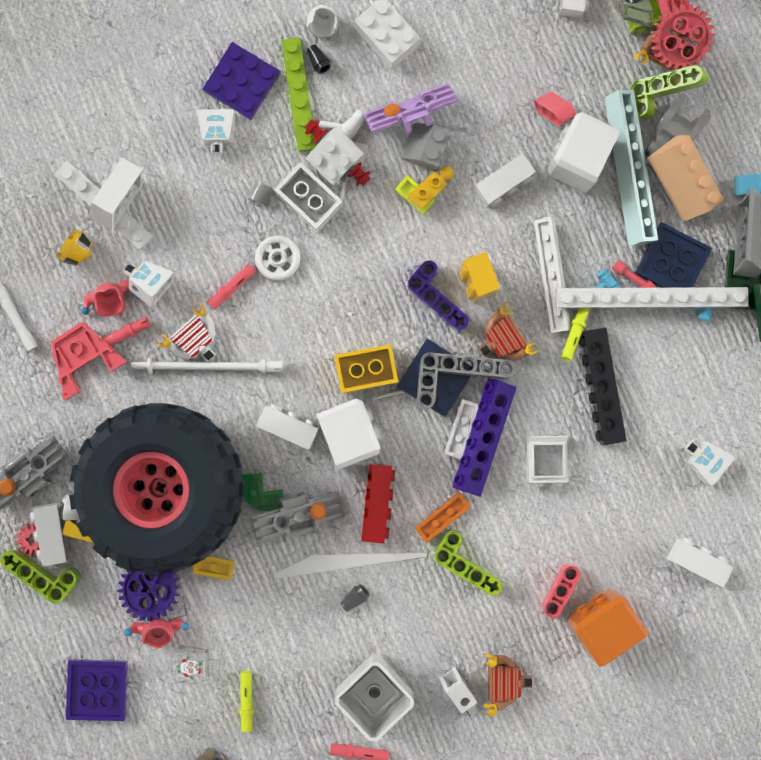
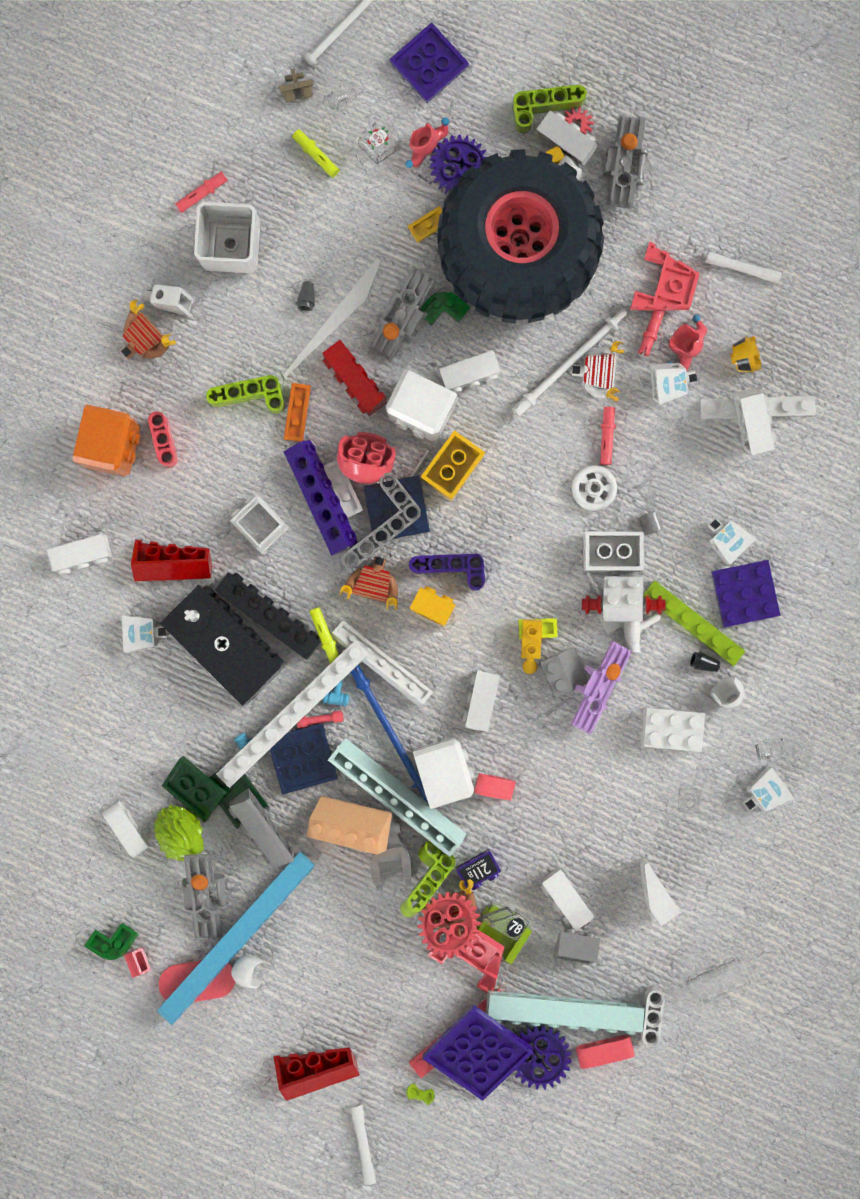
camera: 145 degrees right, 0 degrees up
(433, 430) = (361, 466): none -> coral cylinder
(579, 272) = (363, 684): none -> blue bar
(619, 64) = (479, 869): none -> brick
(640, 494) = (169, 562): none -> red wedge
(659, 368) = (200, 627): none -> black piece

